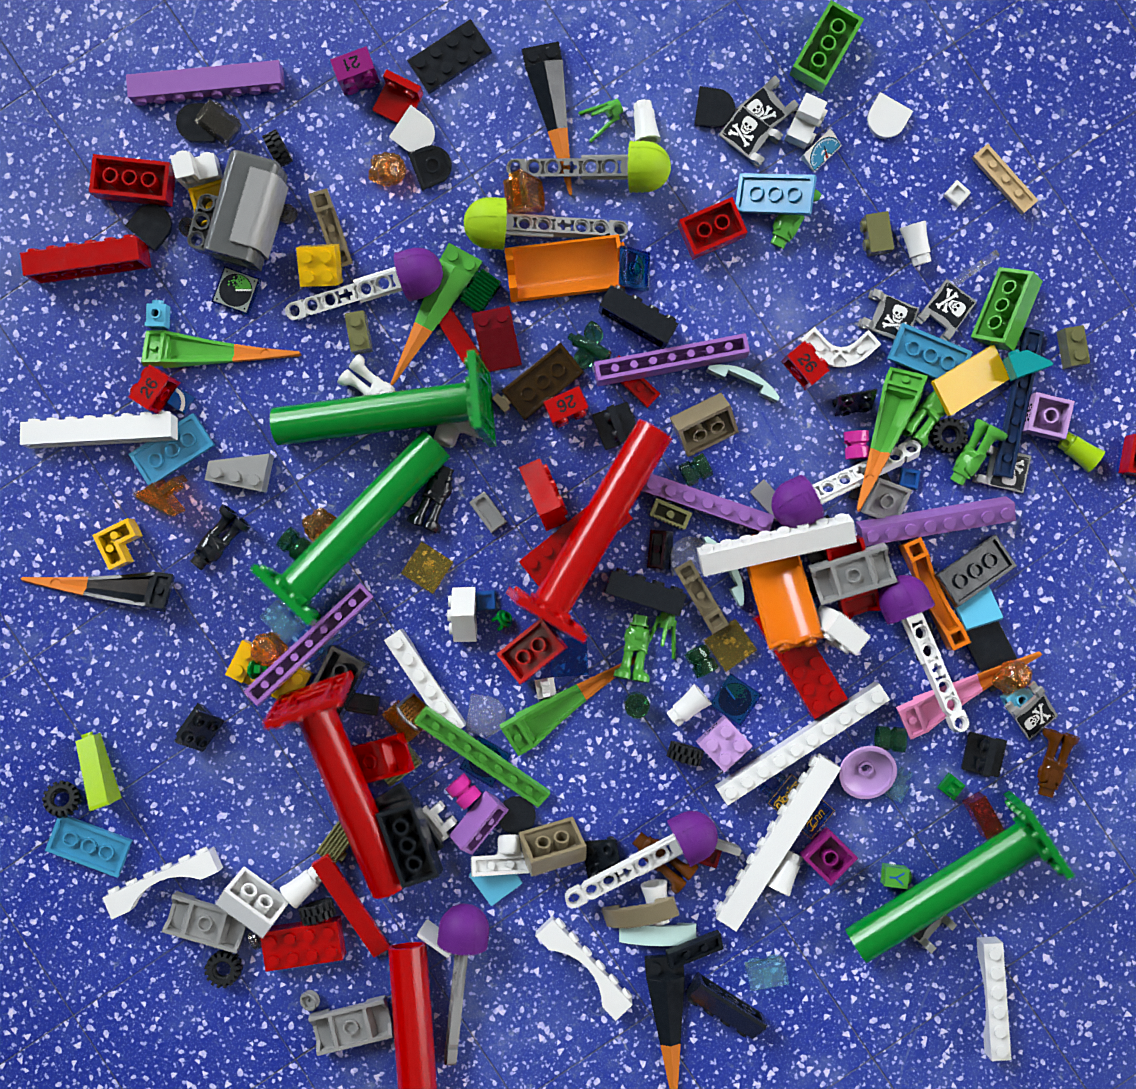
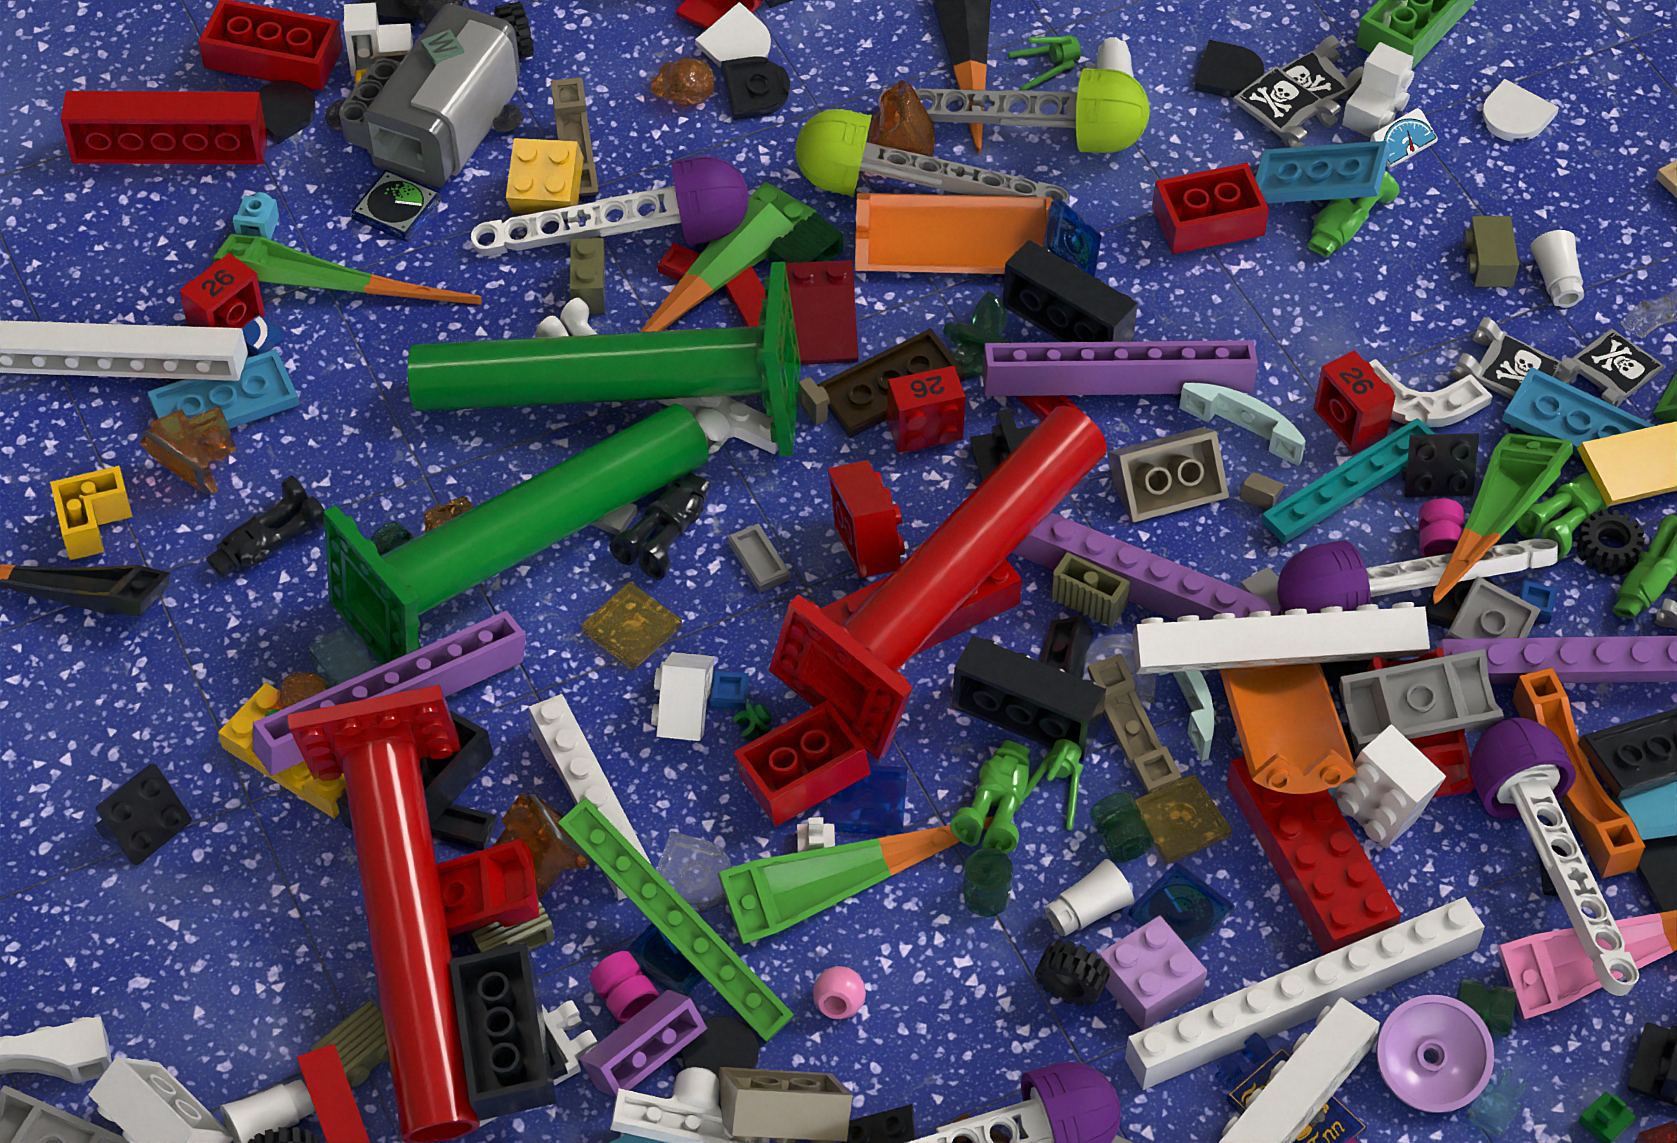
camera: 10 degrees right, 35 degrees down
(238, 193) = (441, 47): none -> sand green tile
(242, 472) = (335, 439): light grey wedge -> none
(408, 309) = (677, 261): none -> red tile
(570, 778) = (836, 990): none -> bright pink piece
(695, 470) = (1150, 531): clear green wheel -> none
(756, 425) = (1261, 491): none -> dark tan slope
(806, 413) = (1342, 484): none -> teal plate
(956, 194) = (1631, 220): white tile -> none

